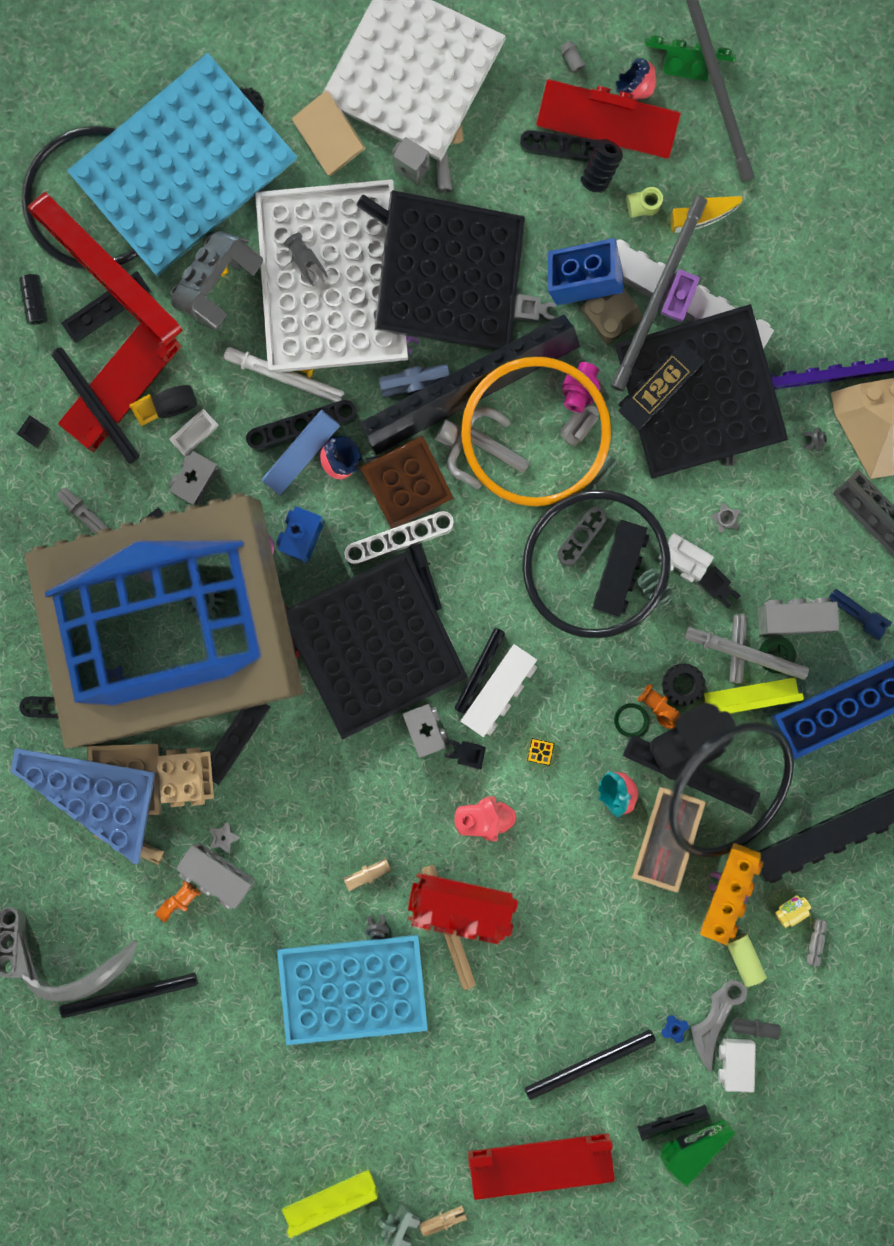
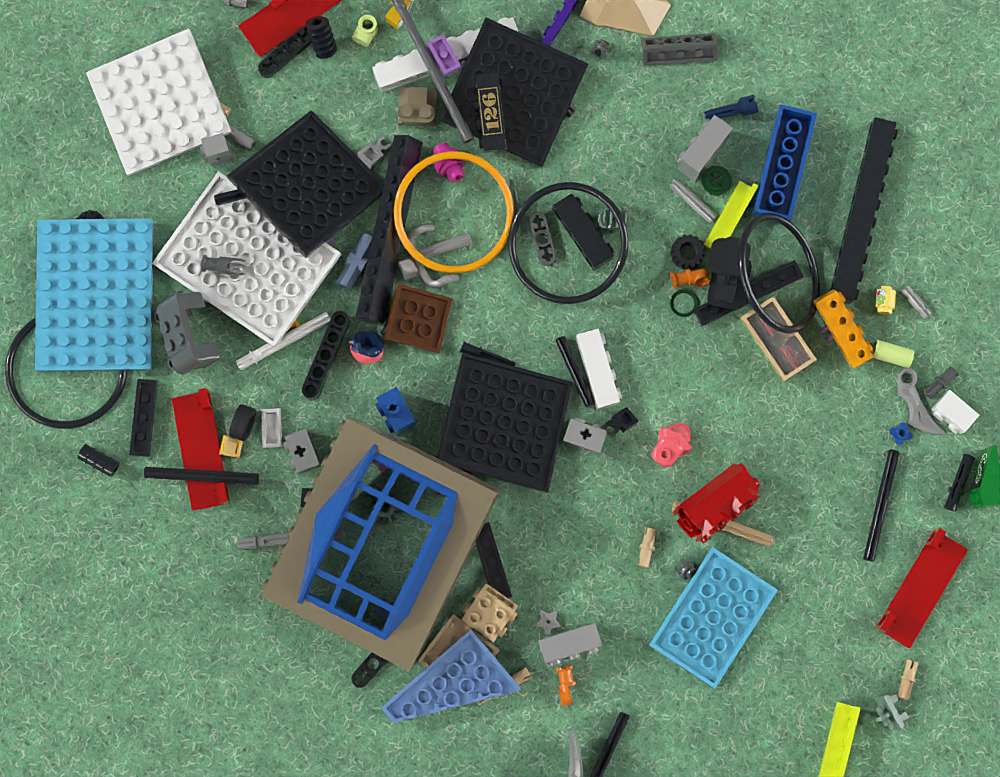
camera: 55 degrees left, 5 degrees down
(33, 431) = (183, 530): black plate -> none
(104, 269) = (120, 396): red beam -> none
(300, 452) = (342, 369): medium blue tile -> none
(328, 133) = (154, 187): tan tile -> none
(387, 538) = (453, 344): white beam -> none
(540, 751) = (657, 375): tile -> none
(579, 425) = (471, 184): light grey piece -> none
(585, 272) = (379, 101): blue slope -> none
(618, 793) = (723, 347): teal hair -> none
(687, 558) = (612, 185): white brick -> none
(716, 584) = (642, 181): black plate -> none
(732, 516) = (604, 137): light grey plate -> none
(746, 653) = (698, 198): light grey axle -> none

